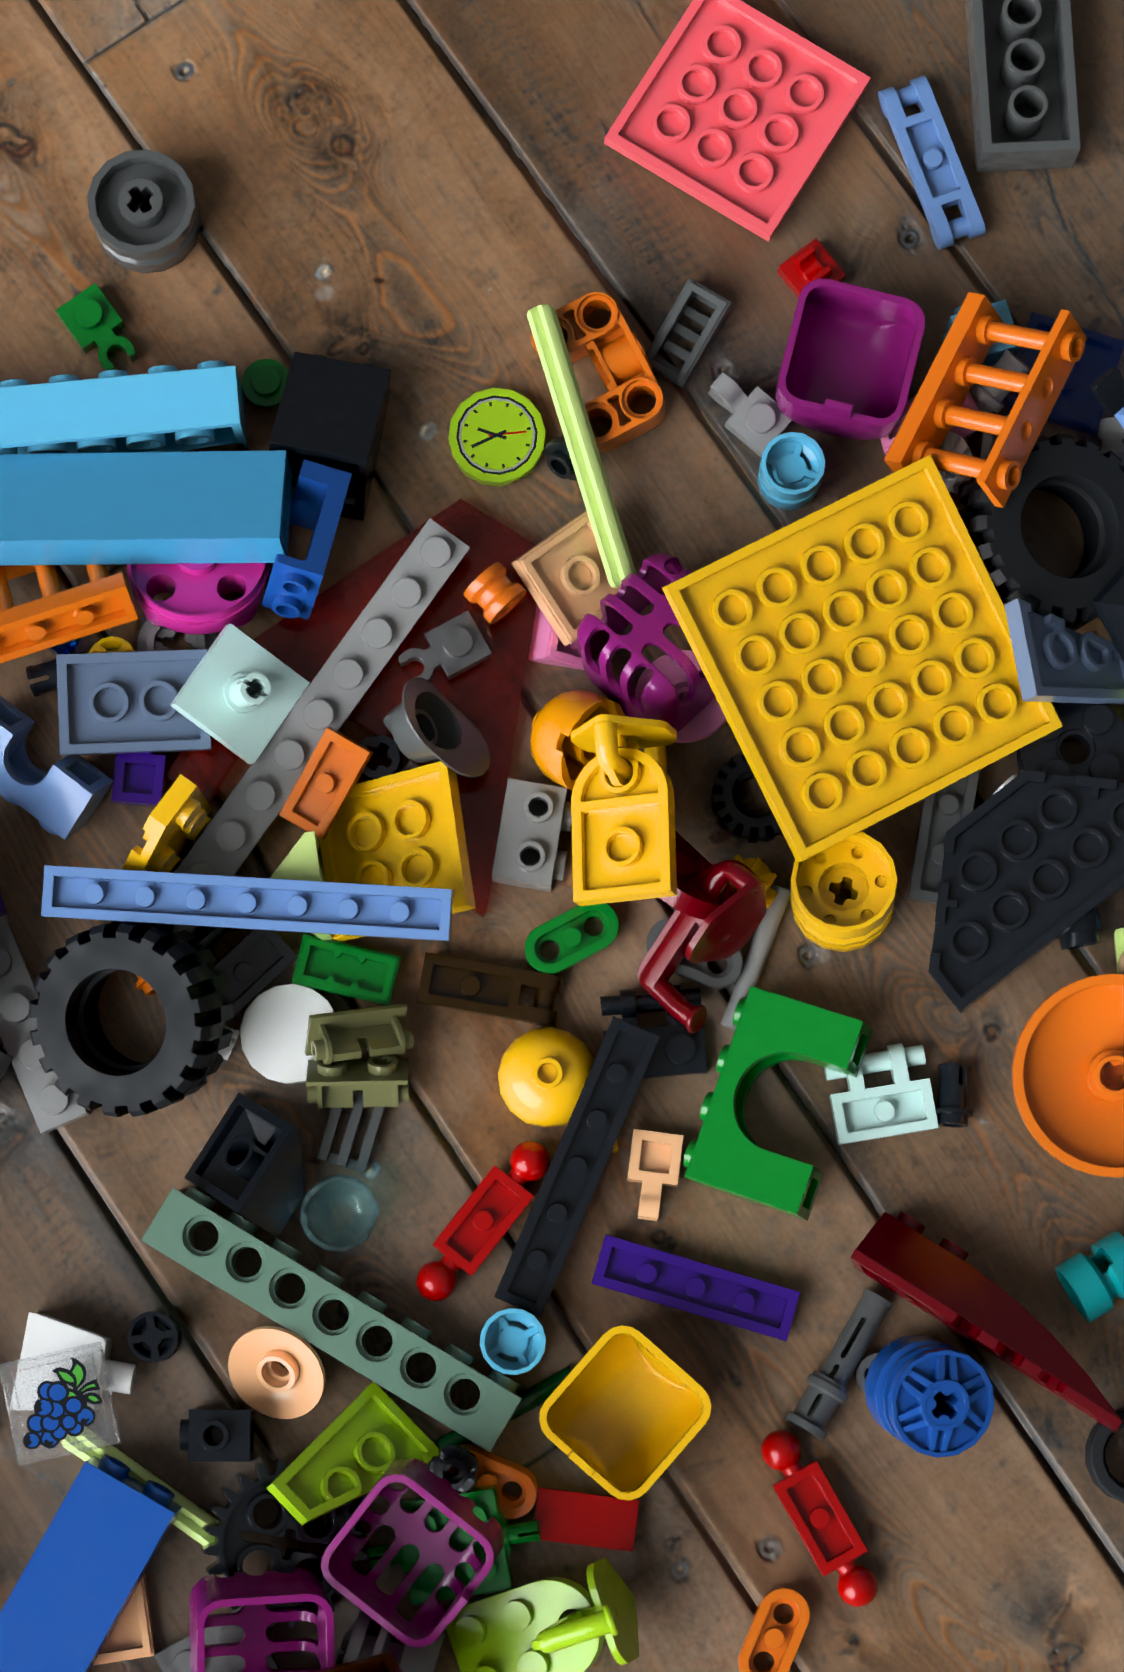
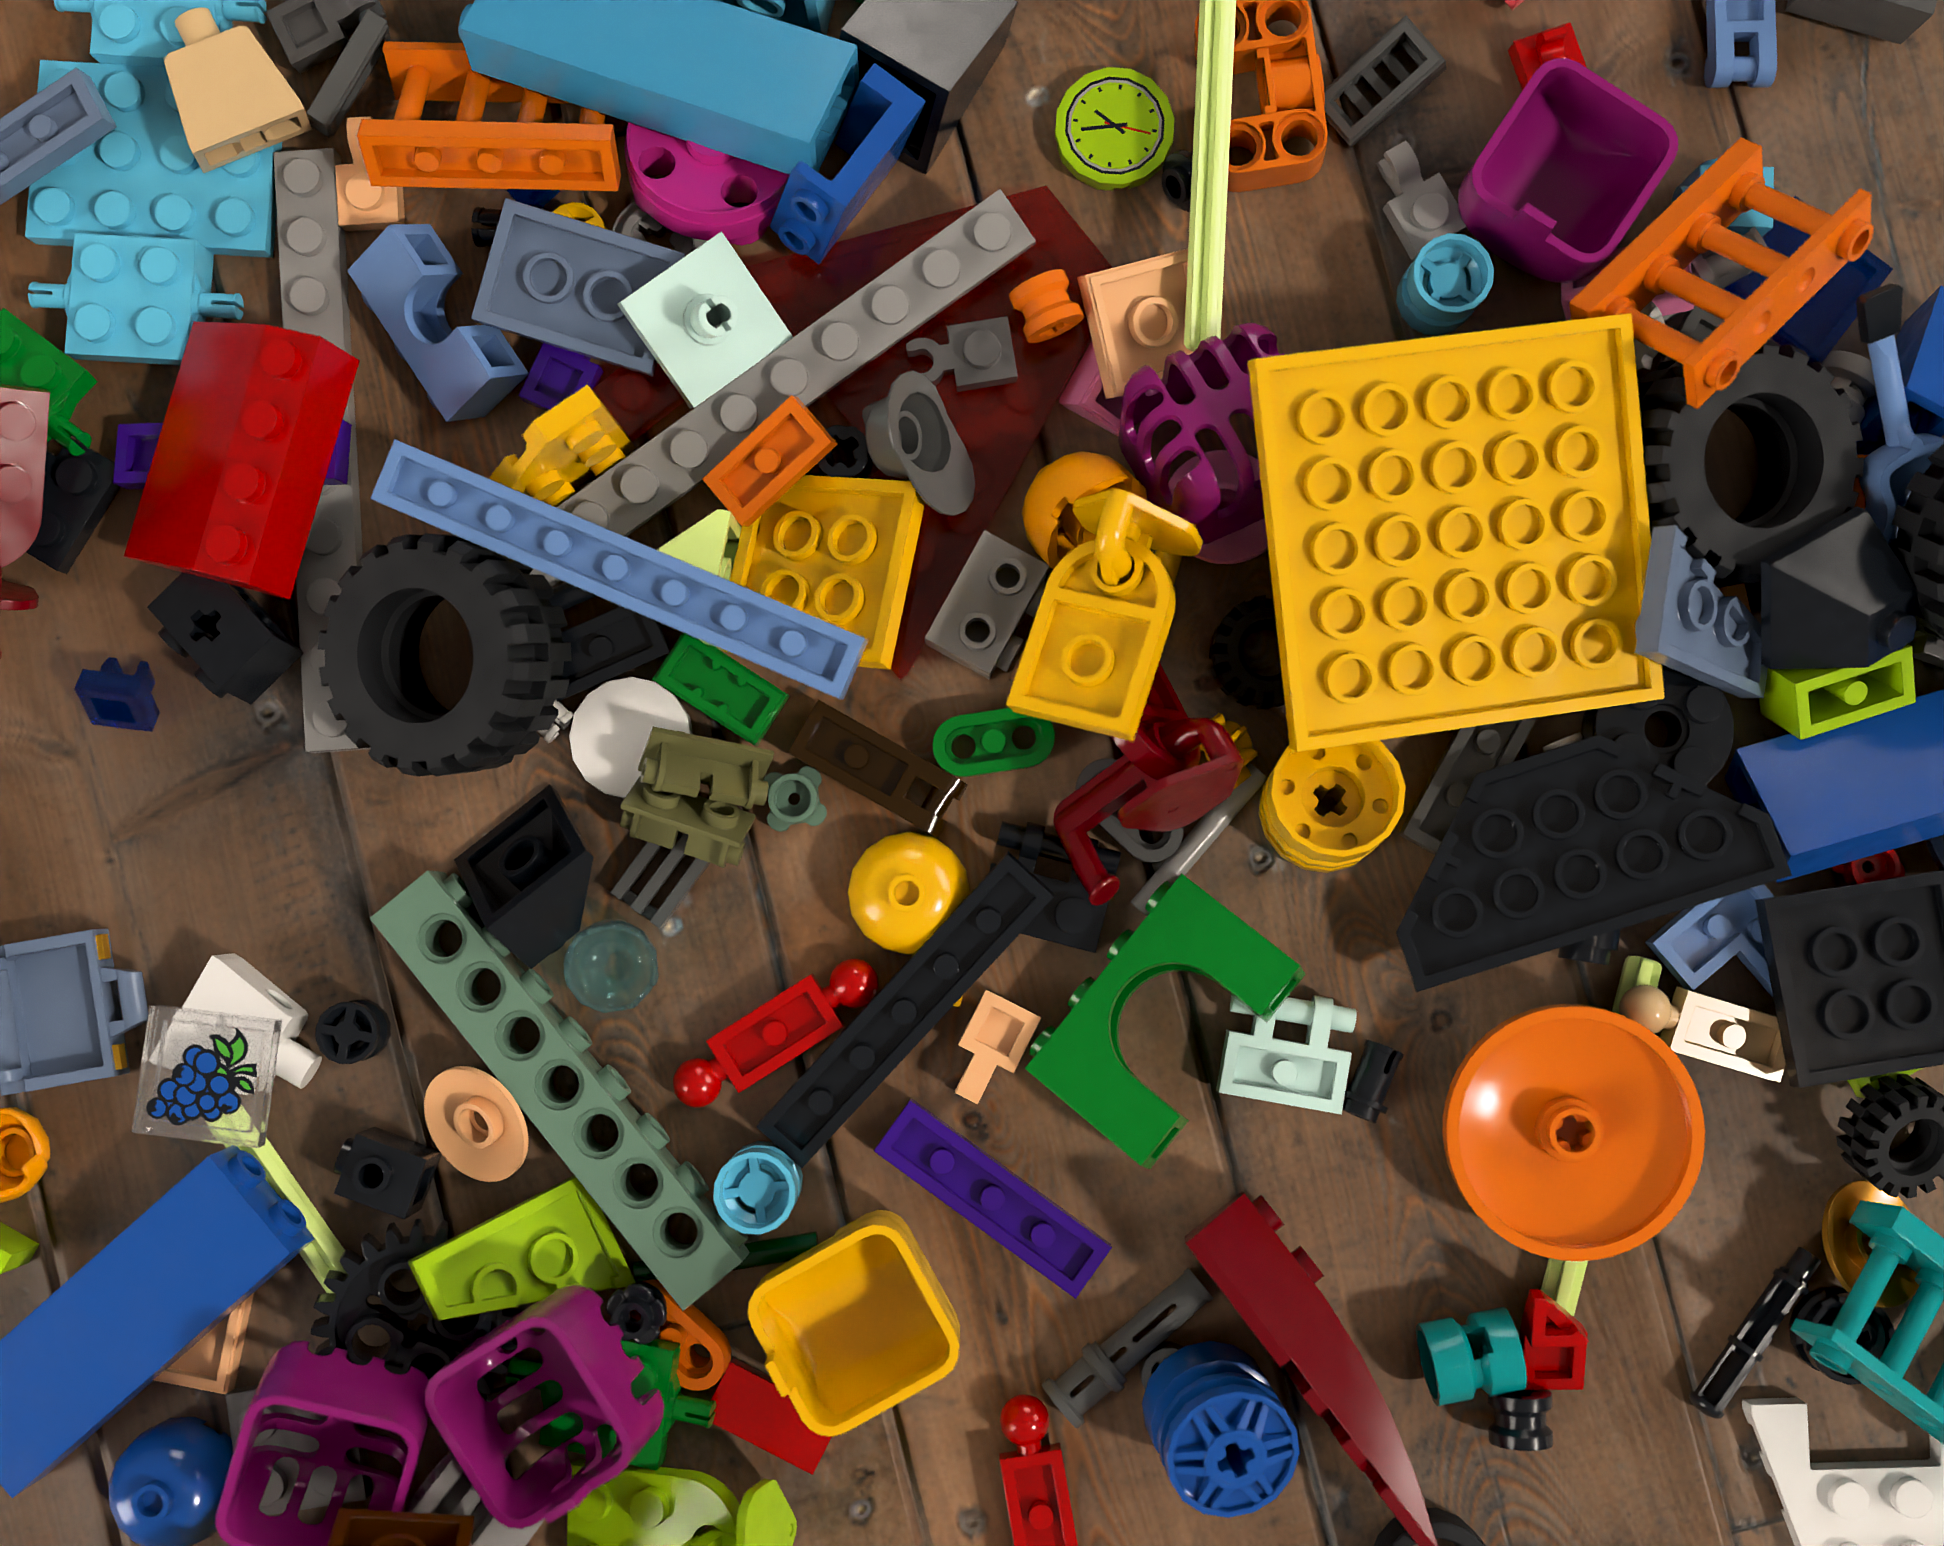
camera: 25 degrees right, 5 degrees up
(447, 1039) = (809, 808): none -> sand green plate

